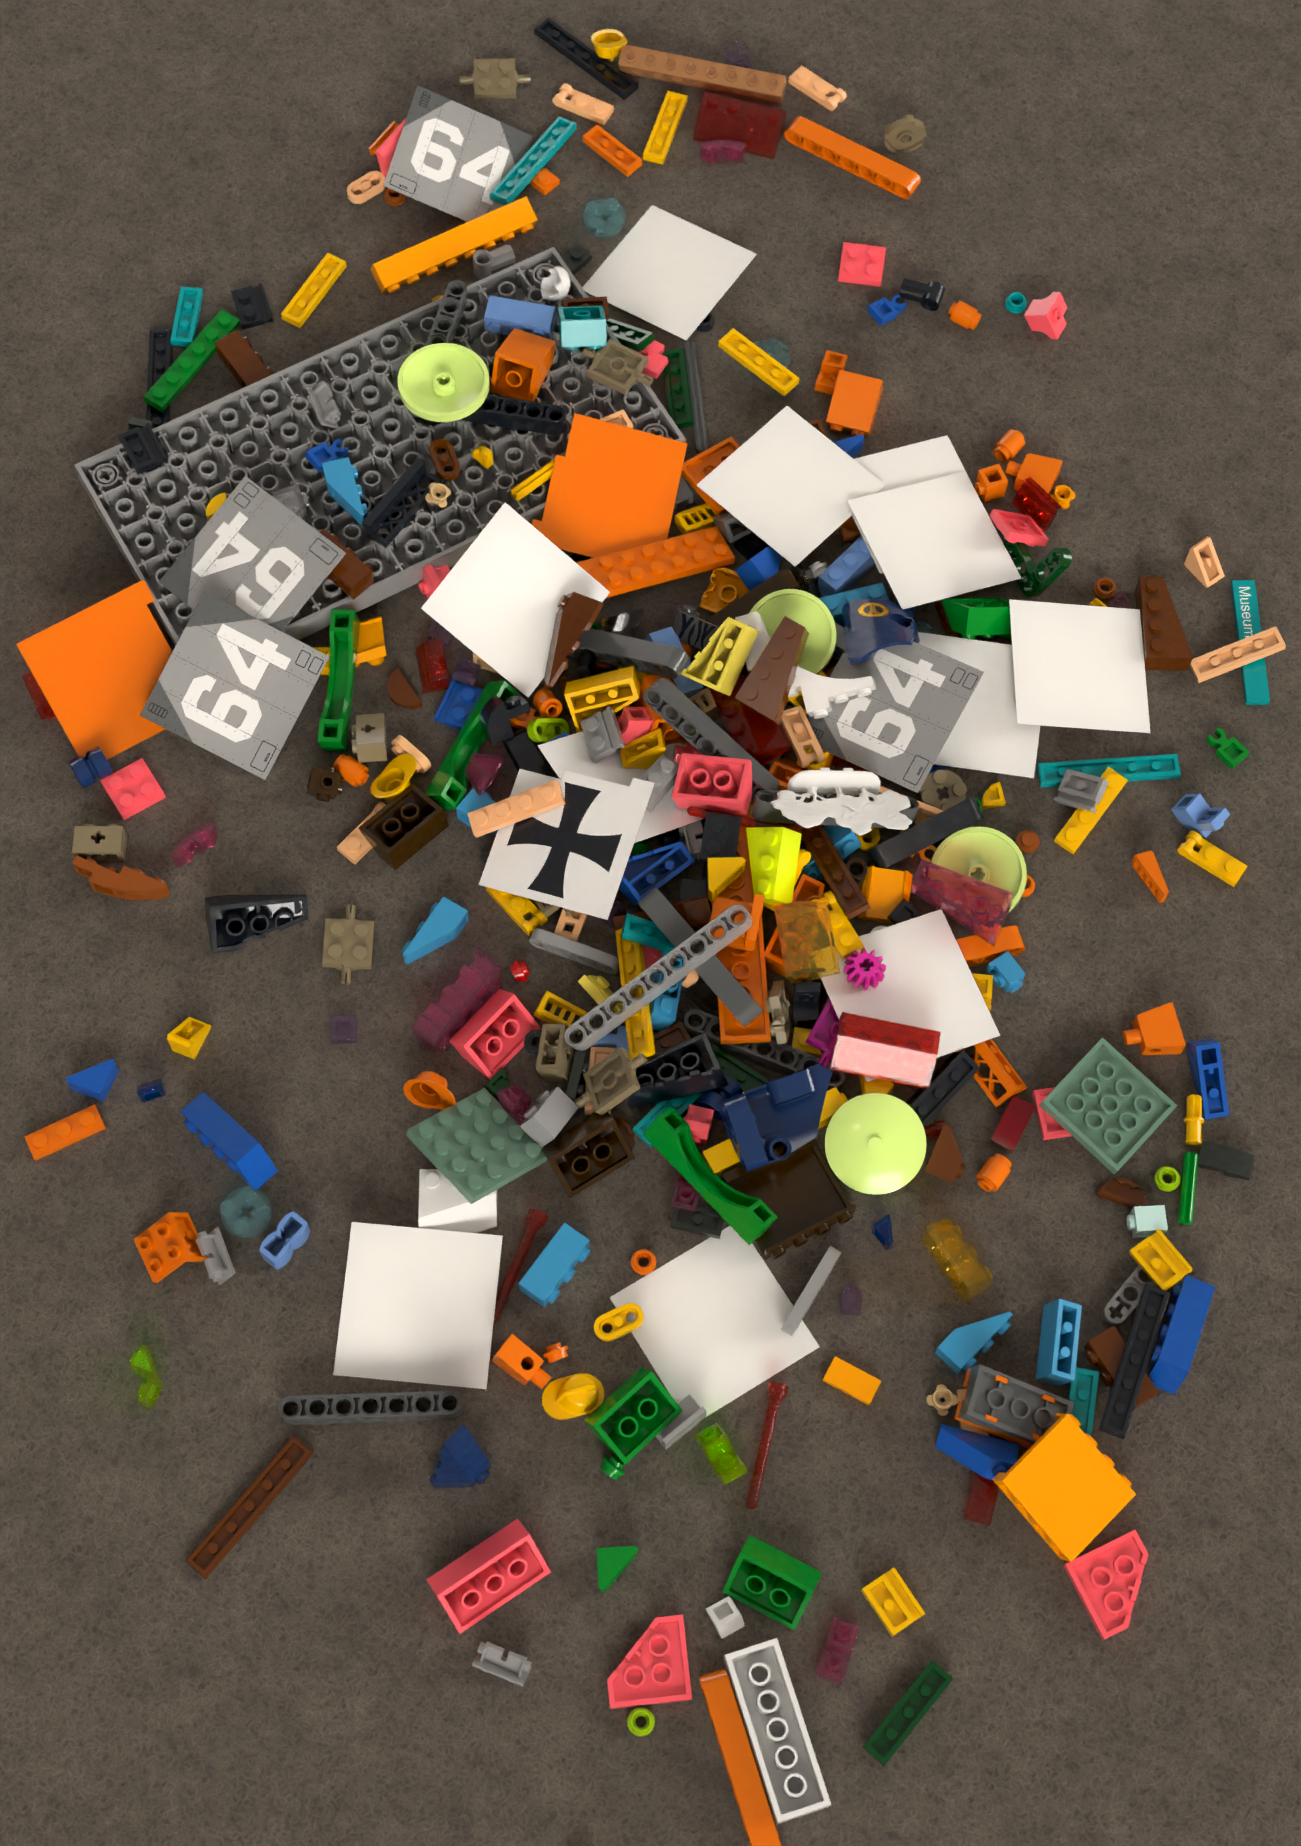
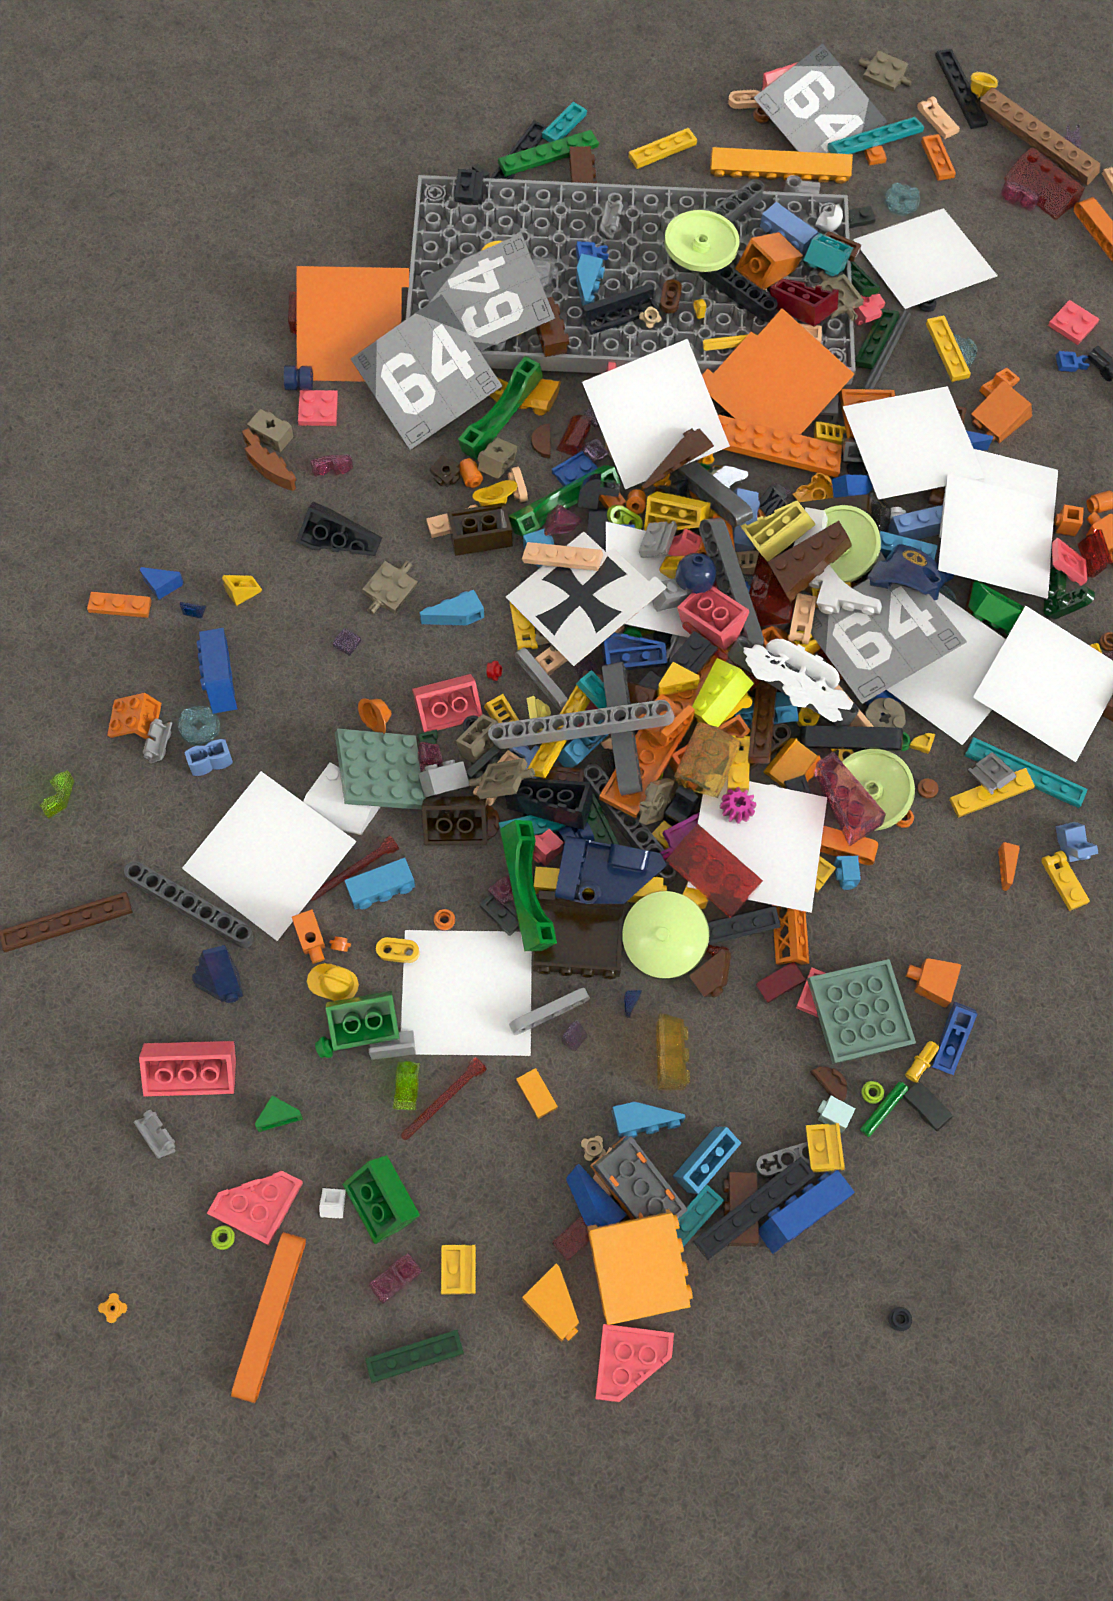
camera: 30 degrees right, 0 degrees up
(251, 306) = (613, 138): black plate -> none
(458, 1002) = (436, 666): clear pink wedge -> none
(592, 393) = (805, 302): none -> dark red wedge
(665, 127) = (987, 160): yellow plate -> none
(670, 750) = (696, 573): none -> dark blue cylinder
(776, 1731) = (309, 1306): white brick -> none
(994, 1172) = (741, 1009): orange brick -> none
(1006, 1576) = (553, 1304): none -> light orange slope

